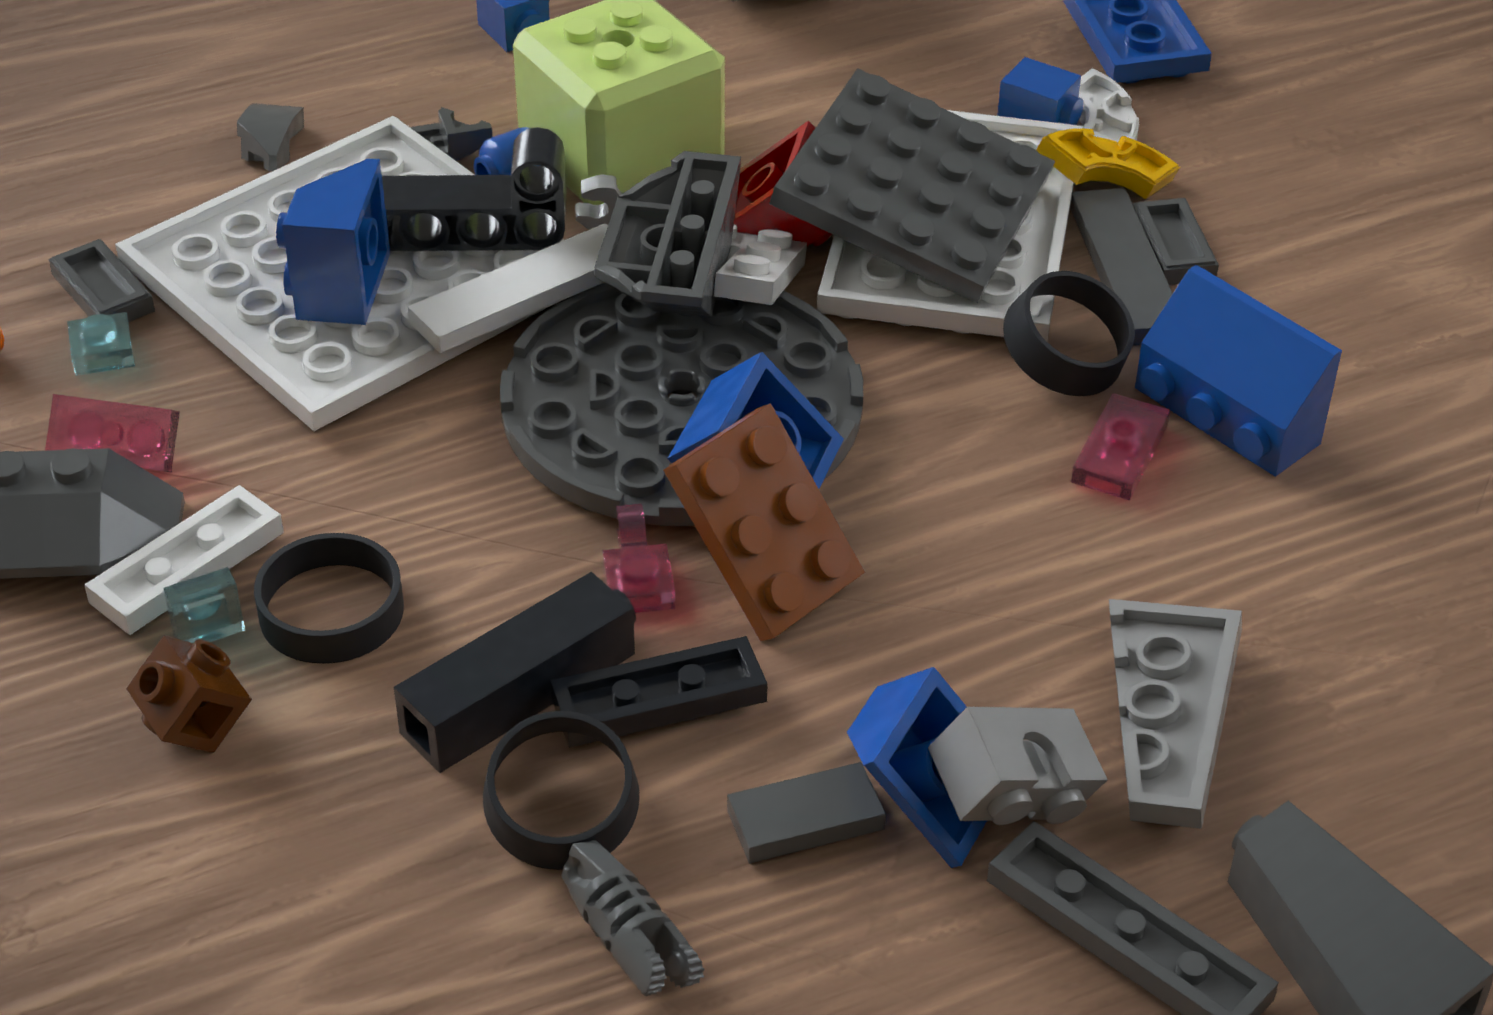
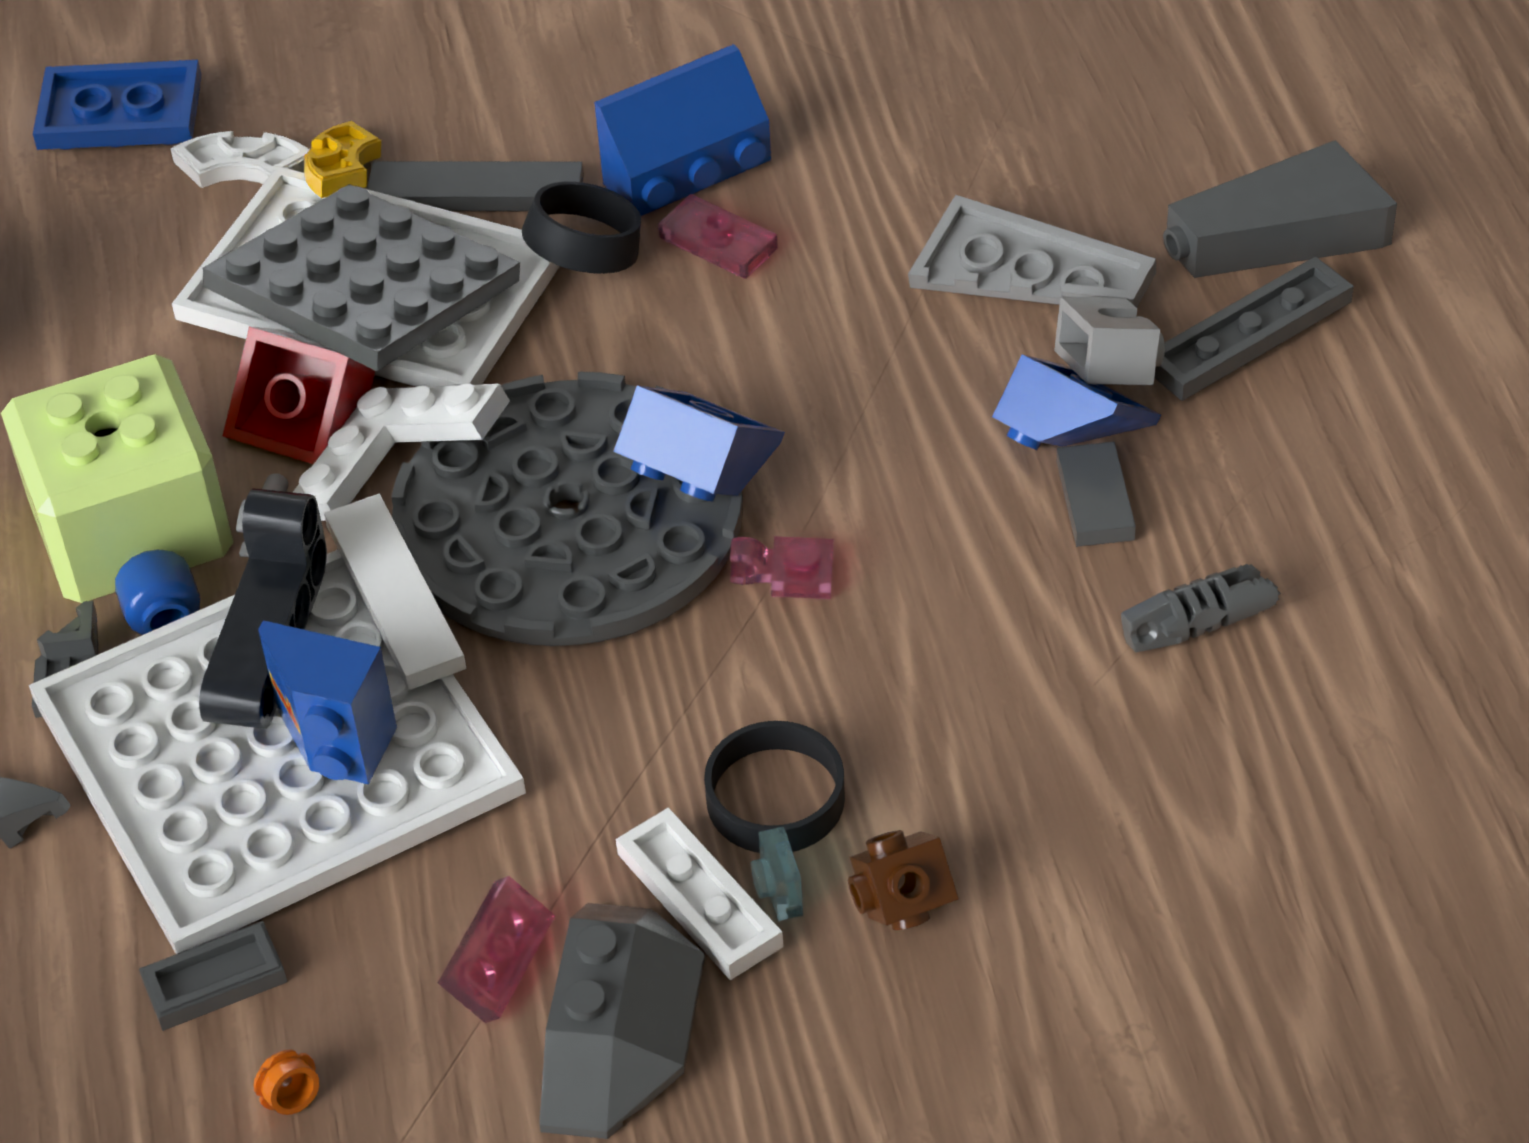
camera: 75 degrees left, 5 degrees up
(100, 343) = (320, 973): clear light blue plate -> none
(508, 670) = (913, 651): black brick -> none
(553, 851) = (1042, 667): black tyre -> none
(664, 688) = (952, 564): black plate -> none
(673, 234) = (406, 443): dark grey wedge -> none
(764, 522) = (807, 441): dark orange plate -> none
(1040, 93) = (215, 188): blue brick -> none
(1175, 237) = (451, 144): dark grey tile -> none

